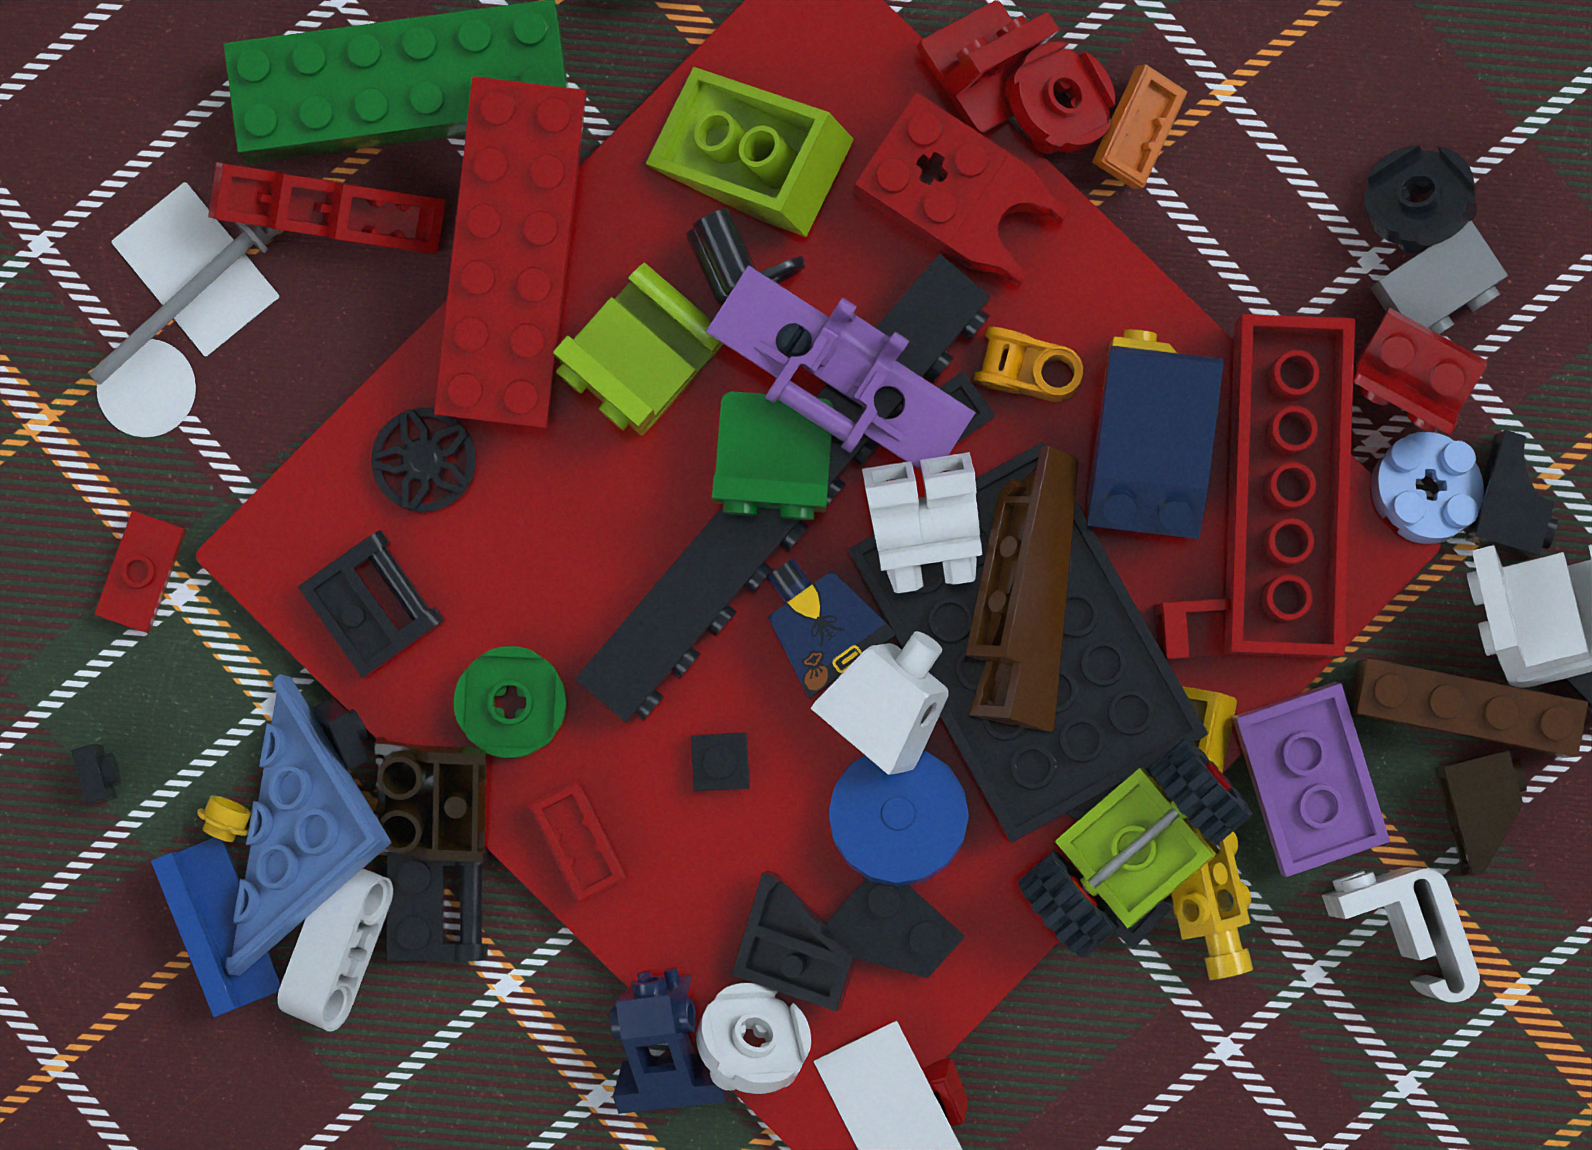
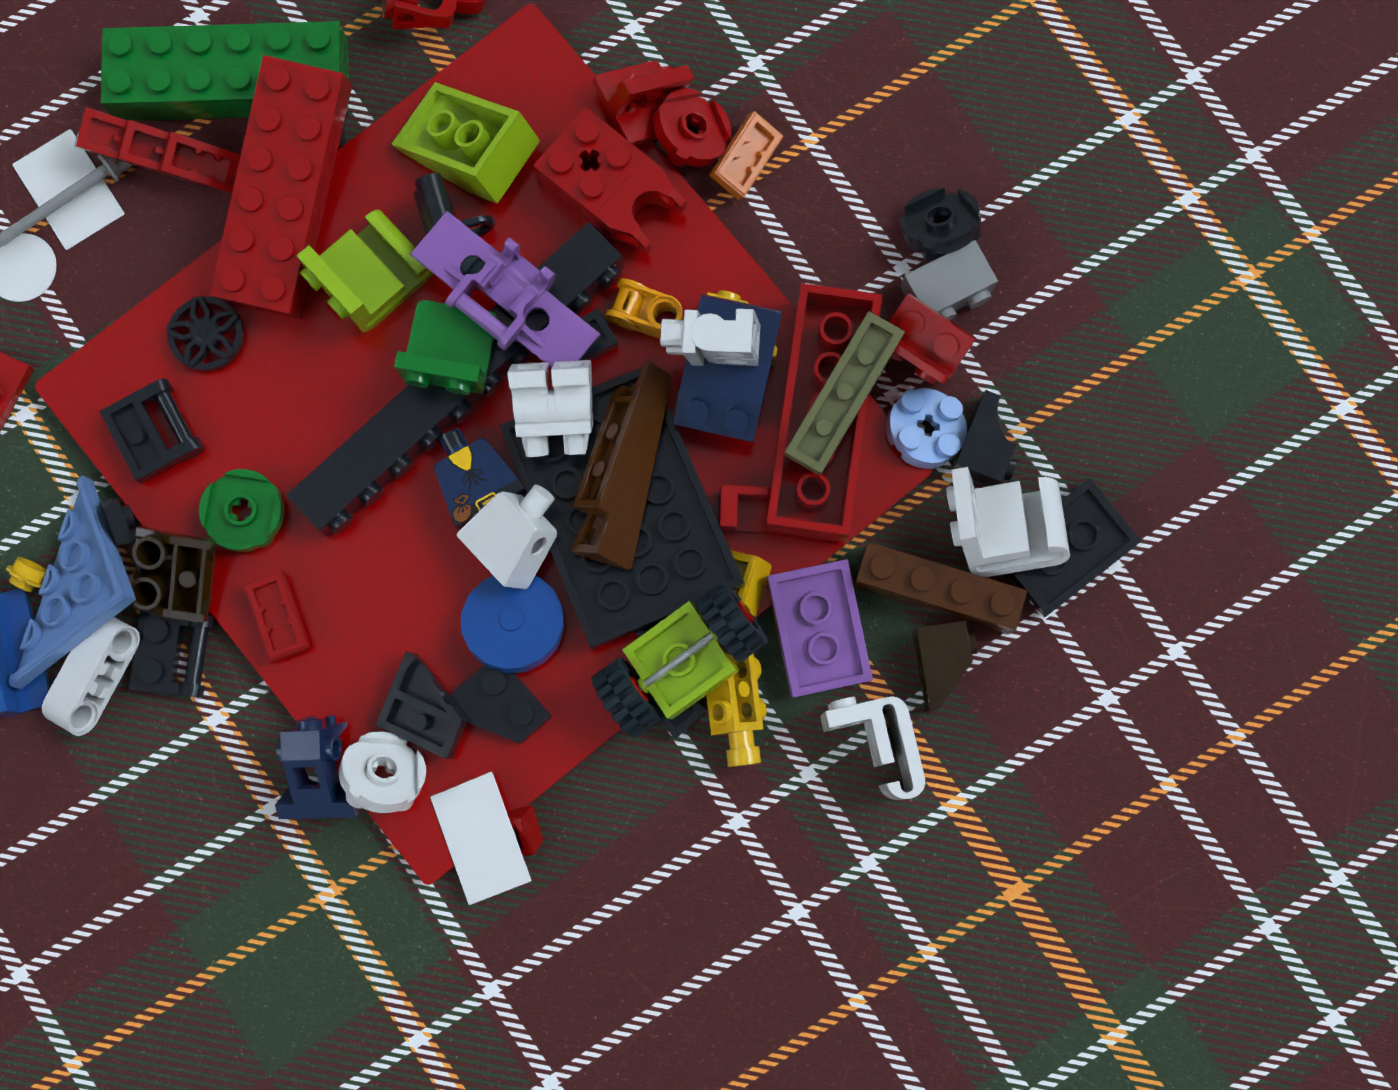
camera: 10 degrees right, 5 degrees down
(720, 761) = (389, 570): black plate -> none
(1139, 415) = (713, 338): none -> white hips
(1320, 465) = (844, 393): none -> olive plate

